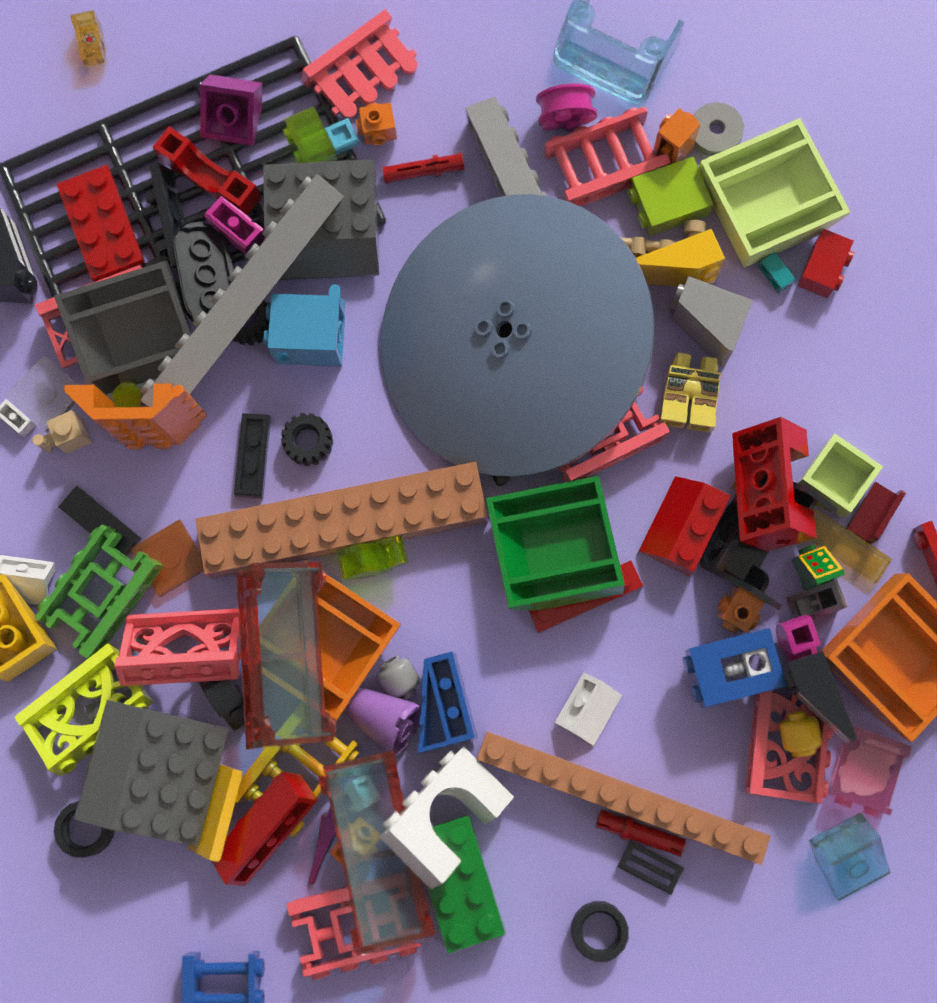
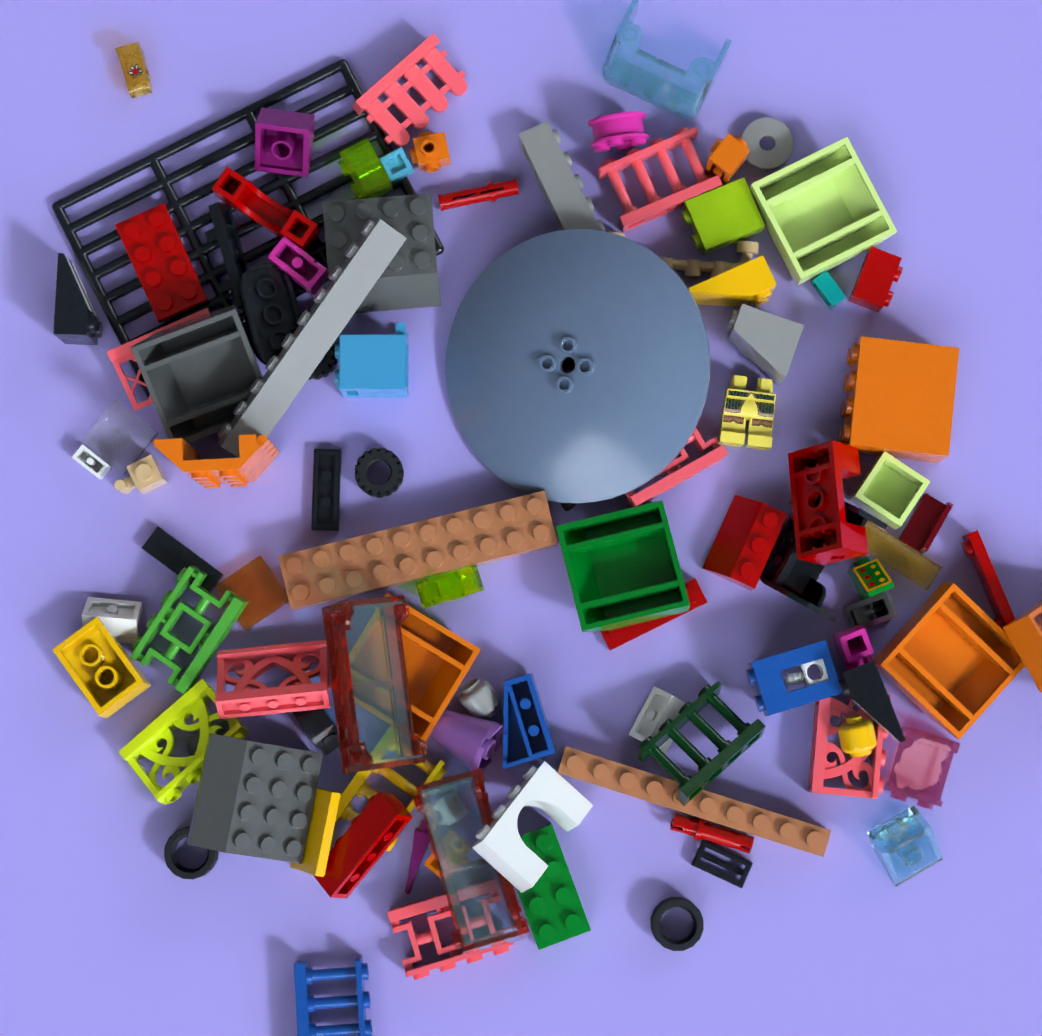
camera: 10 degrees left, 5 degrees up
(127, 395) = (204, 440): clear neon green tile -> none
(639, 761) = (708, 767): none -> dark green fence
(749, 611) = (808, 623): orange brick -> none
(851, 381) = (899, 399): none -> orange brick

